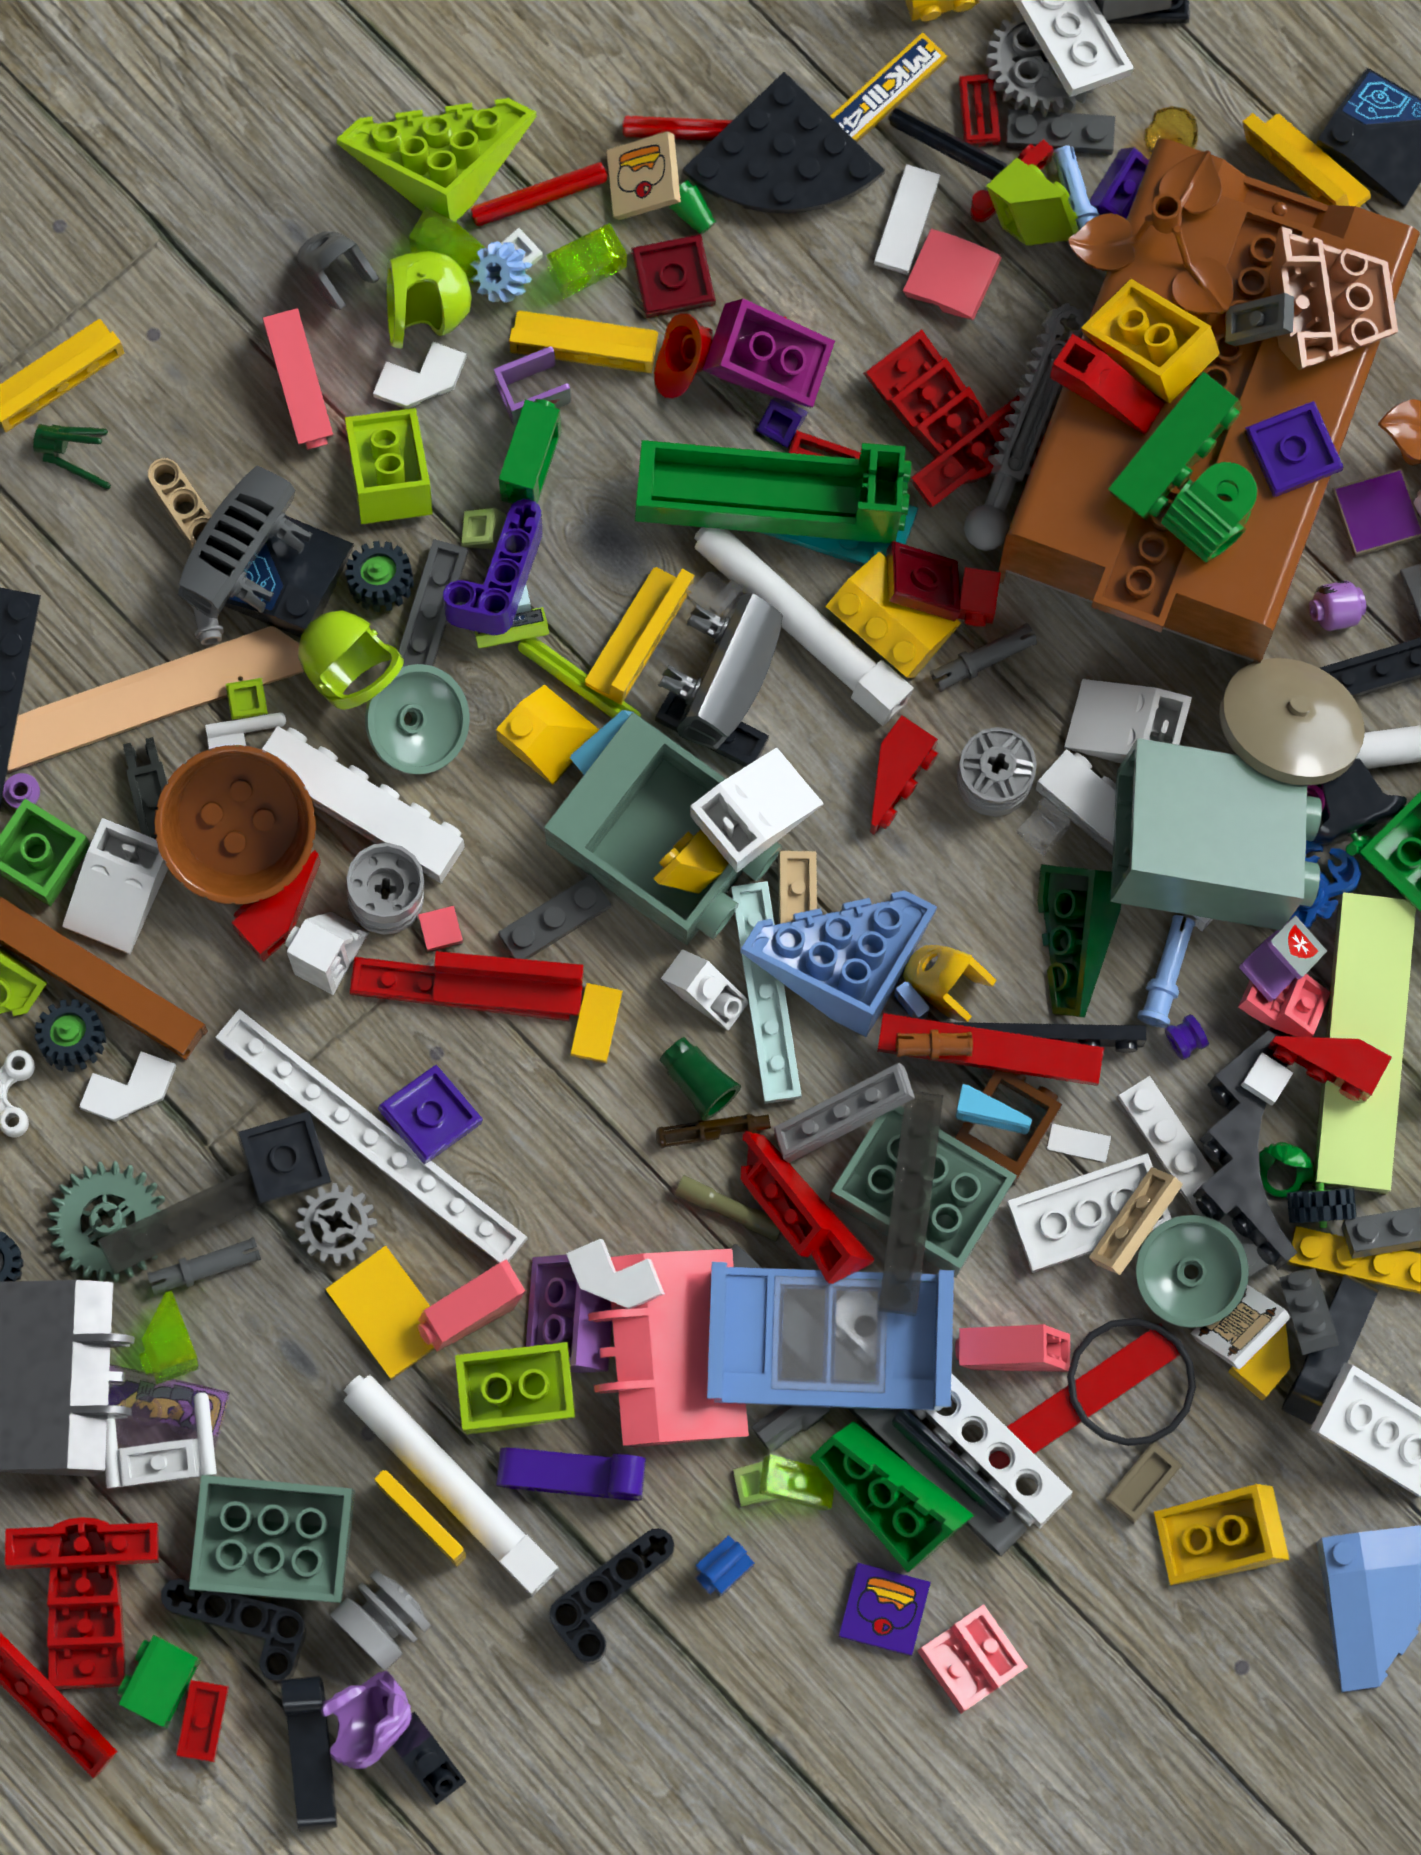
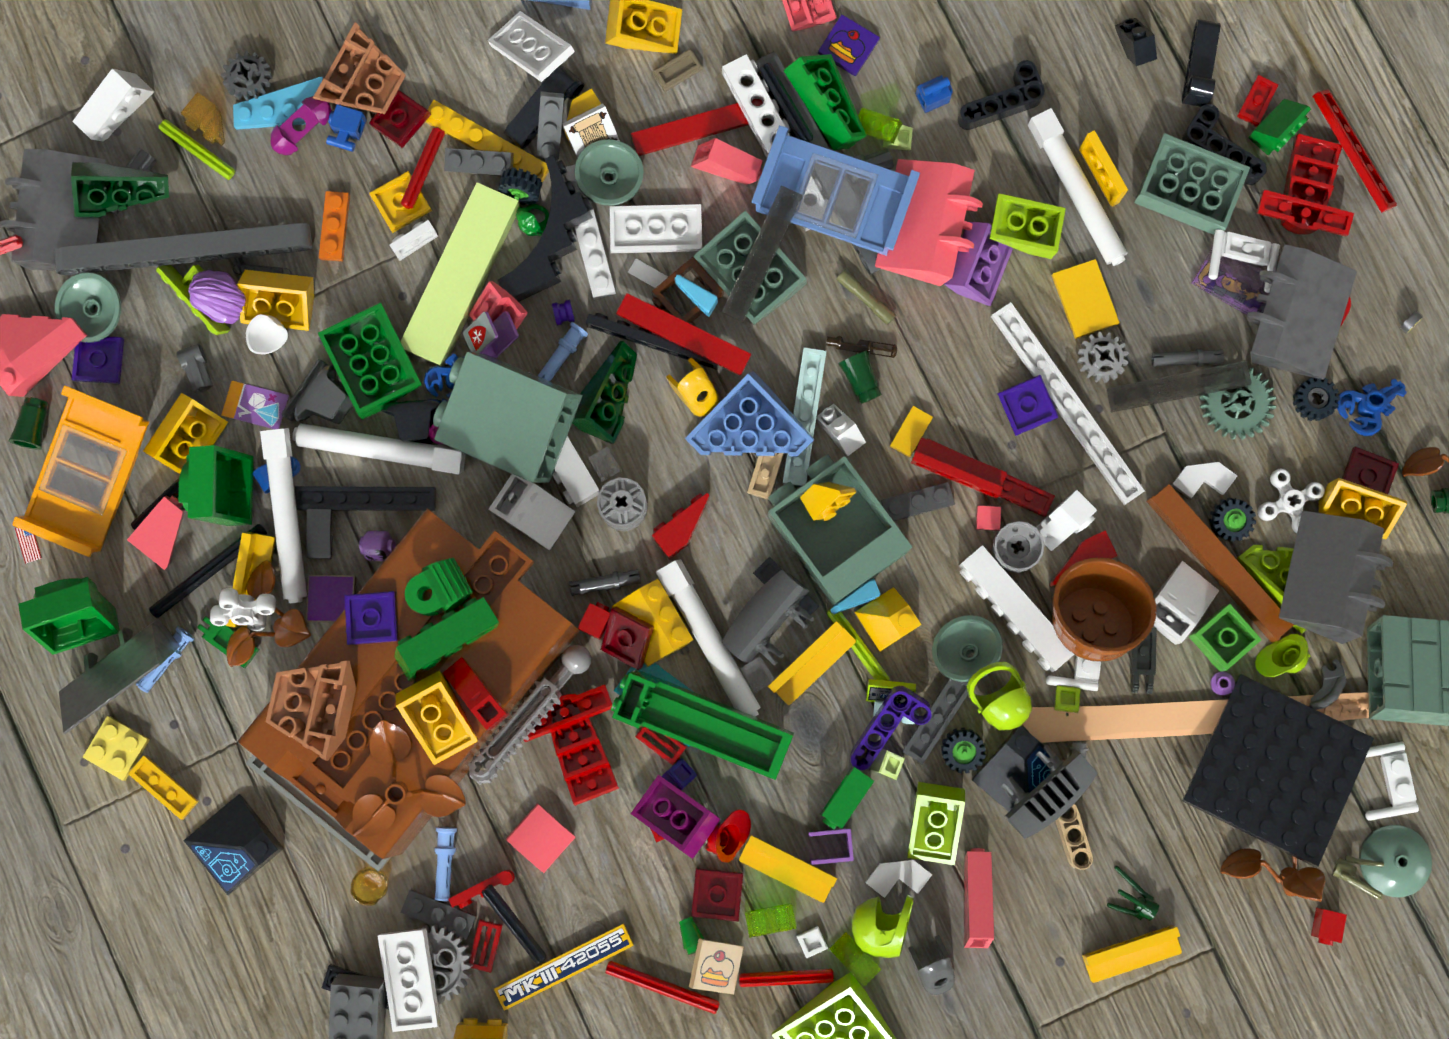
camera: 160 degrees left, 5 degrees up
(167, 1344) = (1222, 316): clear neon green slope -> none
(284, 1157) = (1124, 403): black tile -> none
(368, 1720) = (1165, 62): medium lavender hair -> none
(381, 1619) = (1142, 118): light grey wheel -> none
(471, 1306) = (1039, 279): coral slope -> none
(501, 271) = (827, 928): light blue gear -> none
(572, 1474) = (1005, 171): dark purple beam -> none
(598, 1276) = (961, 266): white tile -> none
(754, 808) = (780, 513): white slope -> none
(783, 156) = (621, 951): black plate -> none
(800, 1212) = (827, 276): red wedge -> none
(844, 1112) = (782, 324): light grey tile -> none
(907, 219) = (556, 885): white tile -> none
(911, 1001) = (719, 383): light blue tile -> none
(934, 1044) = (717, 342): dark orange pin -> none
(1032, 205) = (476, 862): lime slope -> none
(1118, 1439) = (657, 159): black piece -> none
(1120, 183) = (412, 864): dark purple slope -> none
(1135, 1220) = (632, 209): tan plate -> none
(1260, 319) = (361, 705): dark grey plate -> none
(1266, 1079) = (526, 264): white tile -> none
(1291, 721) = (433, 472): dark tan dish -> none
(1303, 162) = (290, 836): yellow panel -> none
(1342, 1061) = (477, 260): red slope -> none
(1357, 844) = (419, 392): green helmet -> none

